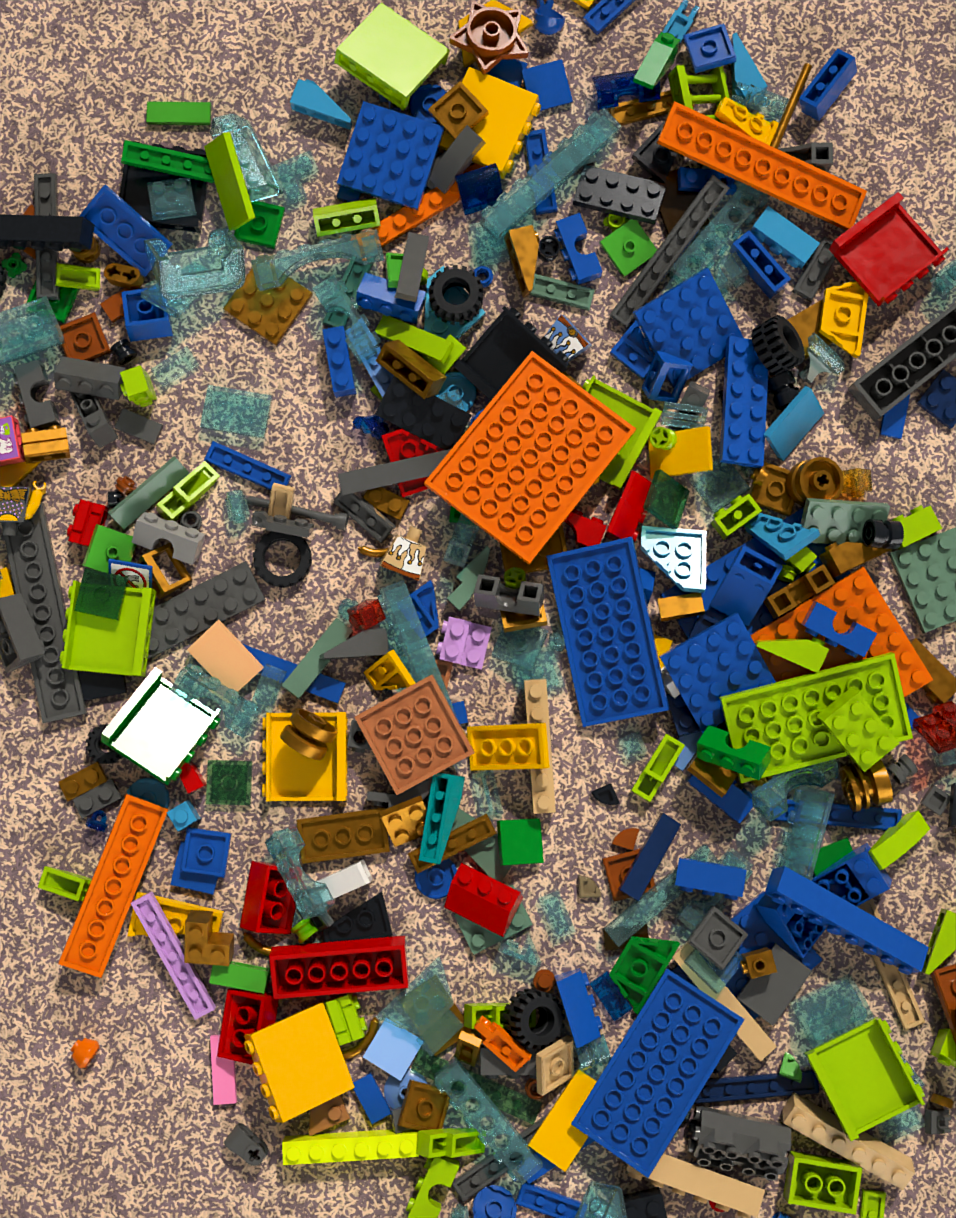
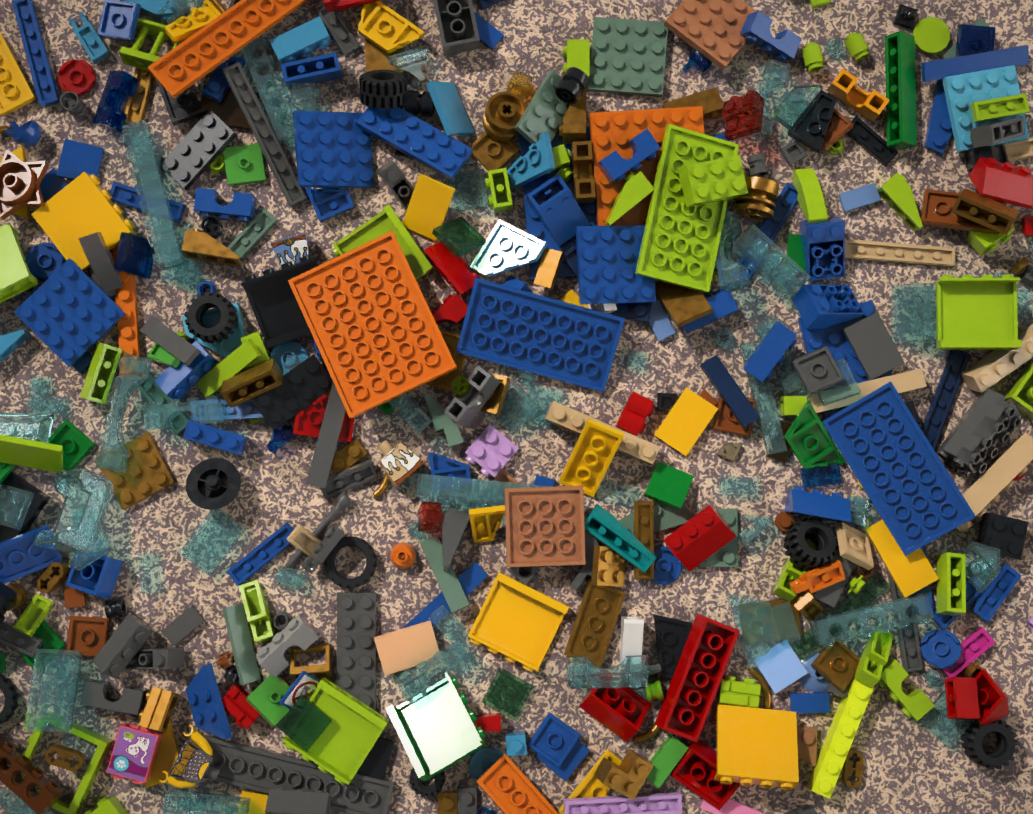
camera: 65 degrees left, 0 degrees up
(73, 489) = (207, 703): none -> blue wing
(138, 386) = (150, 610): lime brick -> none
(292, 383) = (213, 483): none -> black wheel
(308, 734) = (502, 610): pearl gold wheel -> none
(320, 611) = (408, 553): none -> orange cone
(328, 1180) = (858, 769): none -> pearl gold beam
(458, 110) = (62, 240): pearl gold plate -> none
(515, 1087) = (856, 585): none -> lime plate
(566, 1187) = (951, 583): none -> lime brick
(576, 770) = (635, 413): none -> red brick
(595, 827) = (686, 421): none -> yellow tile
(601, 41) = (70, 99): none -> dark grey wheel
(624, 40) = (82, 79): none -> red tile
(657, 60) = (107, 64): slope -> none
(657, 374) = (357, 192): blue tile -> none
(657, 768) = (664, 350): lime slope -> none
(658, 437) = (407, 217): lime wheel -> none
(668, 929) = (792, 405): none -> lime brick
(684, 424) = (411, 176): clear light blue tile -> none
(695, 823) = (727, 333): none -> clear light blue plate
(749, 760) = (696, 276): green arch -> none
(758, 963) = (852, 349): pearl gold brick -> none
(759, 476) = (477, 156): pearl gold plate -> none
(790, 1068) = (942, 366): bright green tile -> none
(846, 920) = (852, 266): blue brick -> none
(925, 893) = (859, 197): none -> medium blue tile

